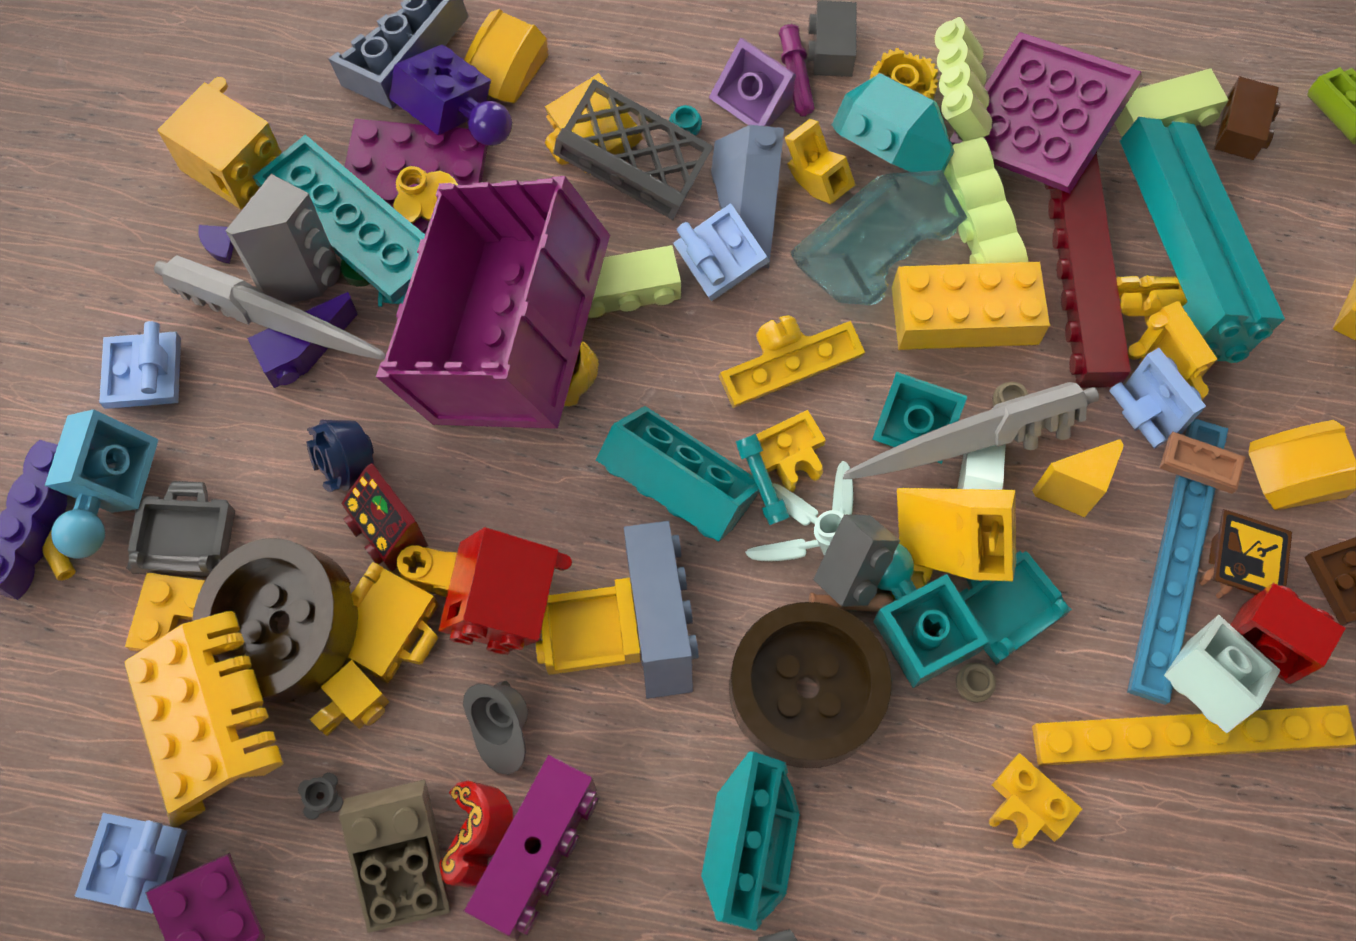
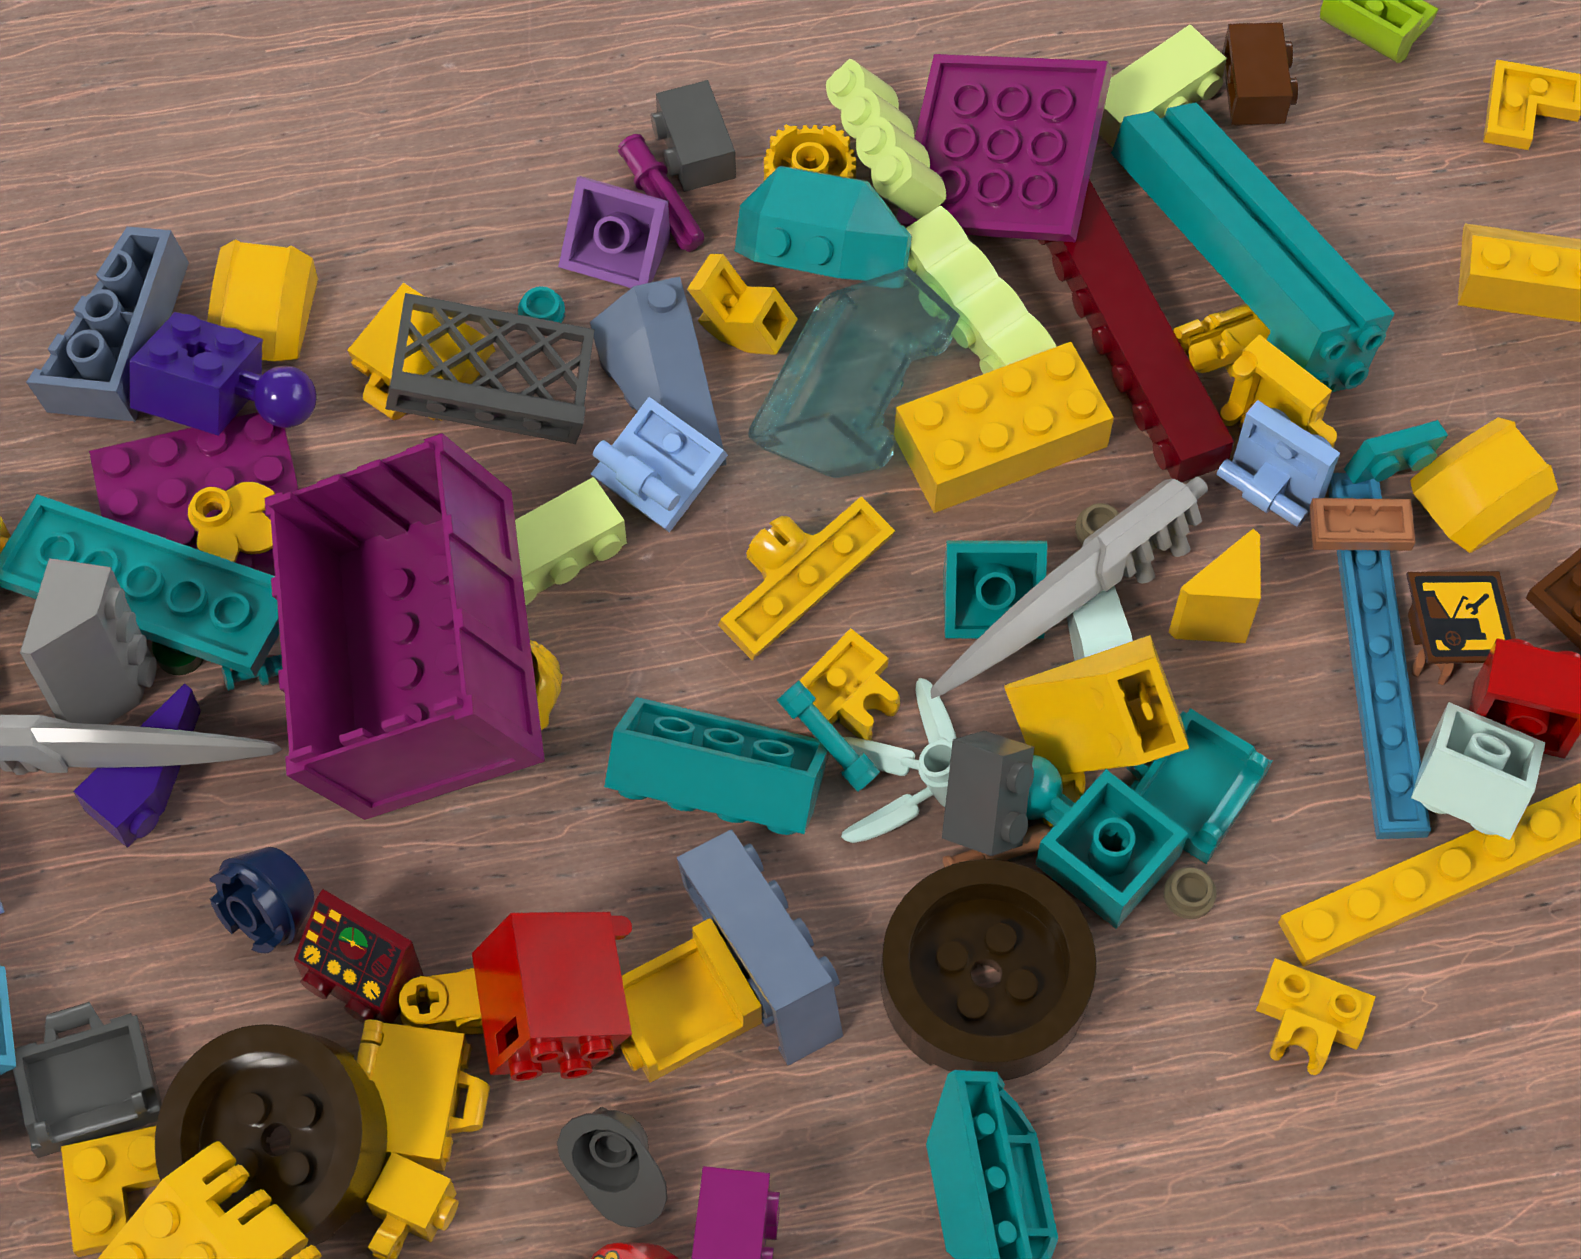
camera: 20 degrees left, 5 degrees down
(1247, 419) = (1397, 451): none -> teal plate

